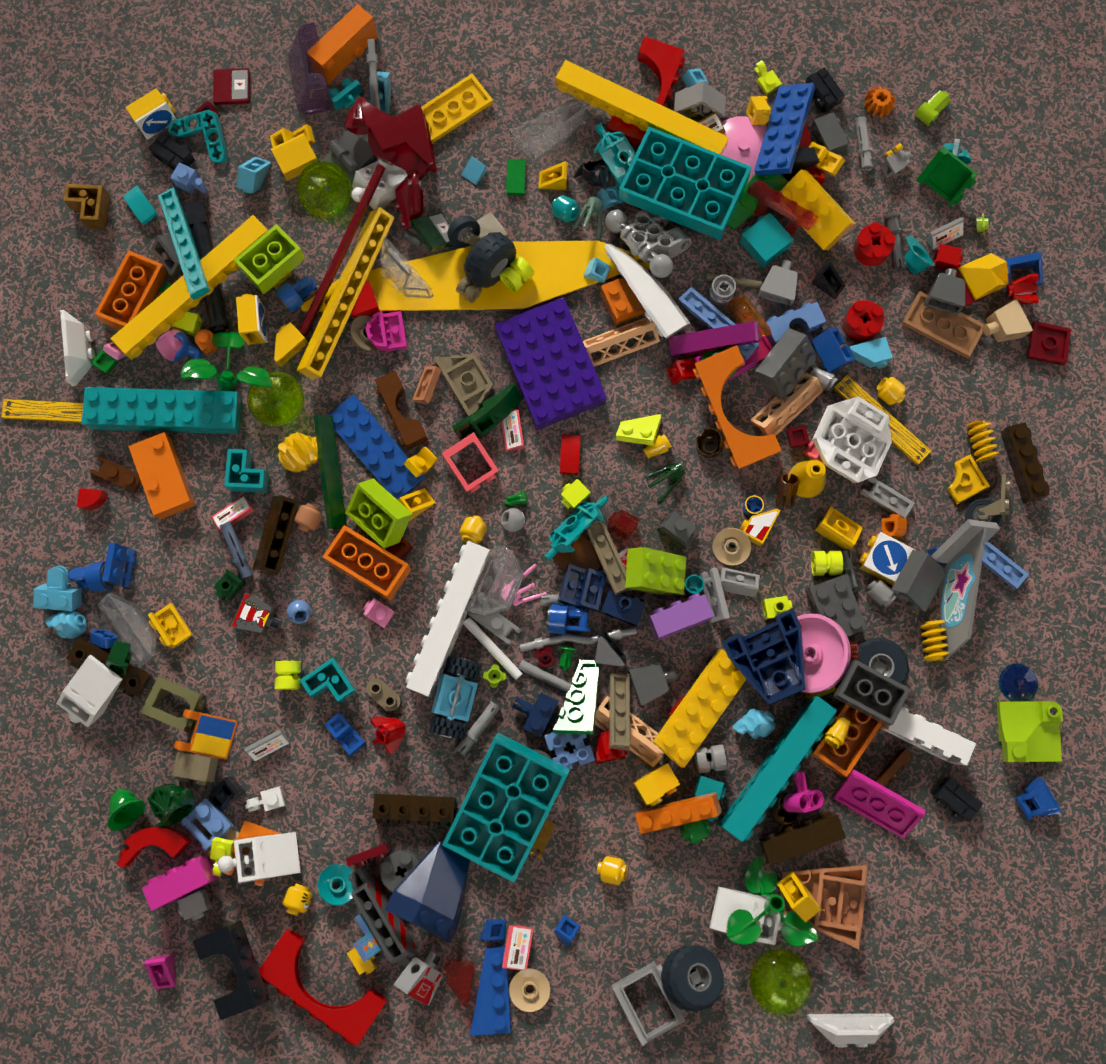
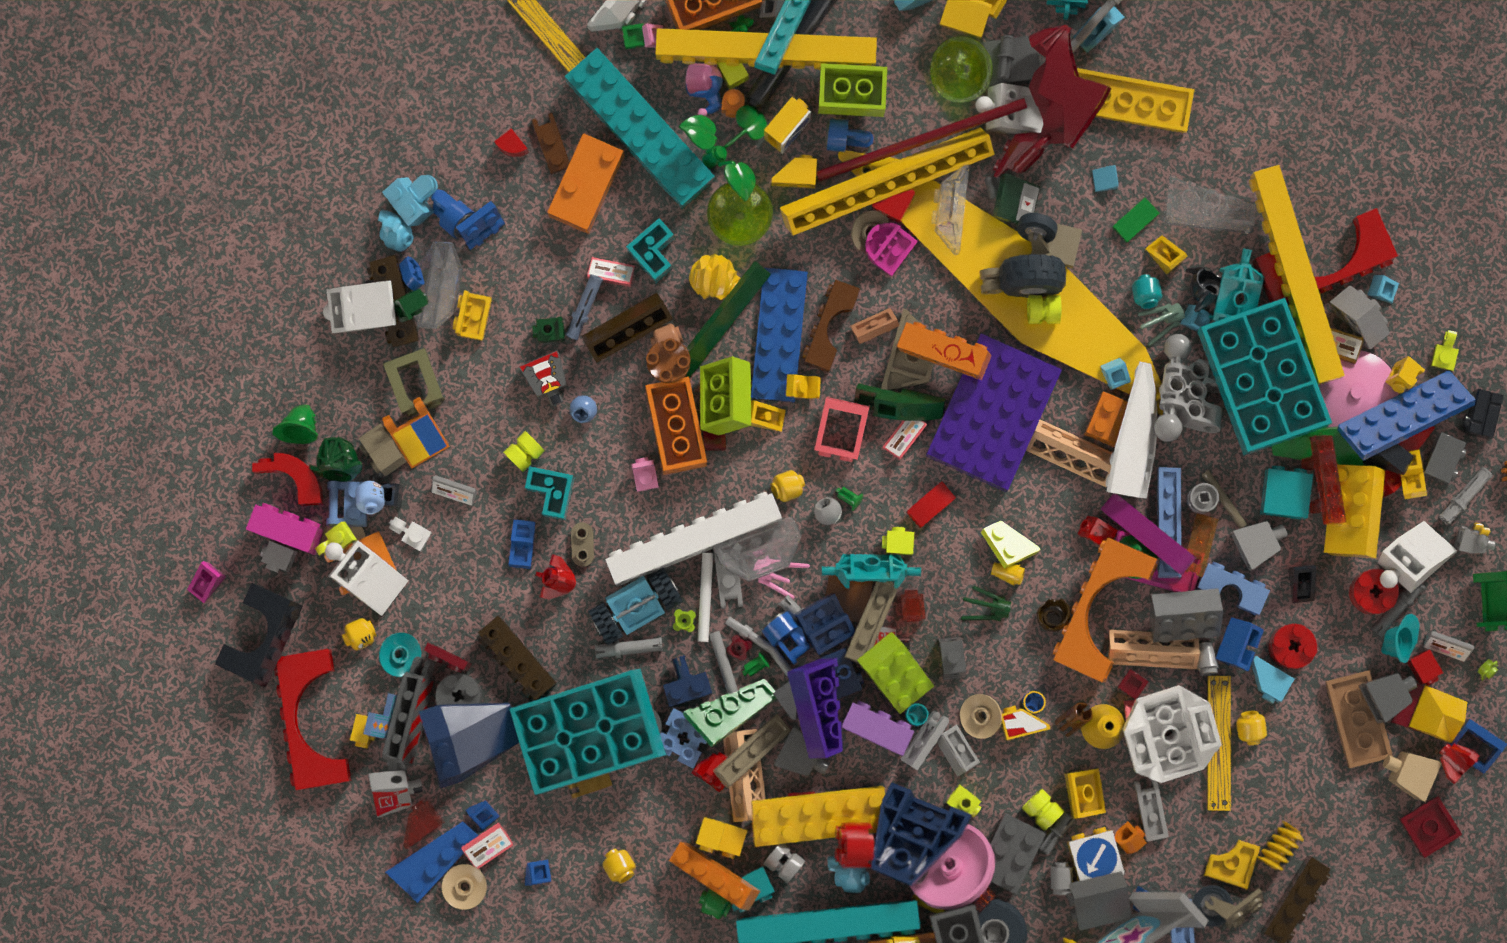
camera: 50 degrees right, 5 degrees up
(216, 805) = (369, 497): none -> light blue head
(321, 528) = (668, 361): none -> dark orange dish
(483, 354) = (944, 350): none -> orange brick
(631, 640) = (818, 706): none -> dark purple wedge
(743, 701) = (854, 845): none -> red brick
(875, 202) = (1414, 557): none -> white slope

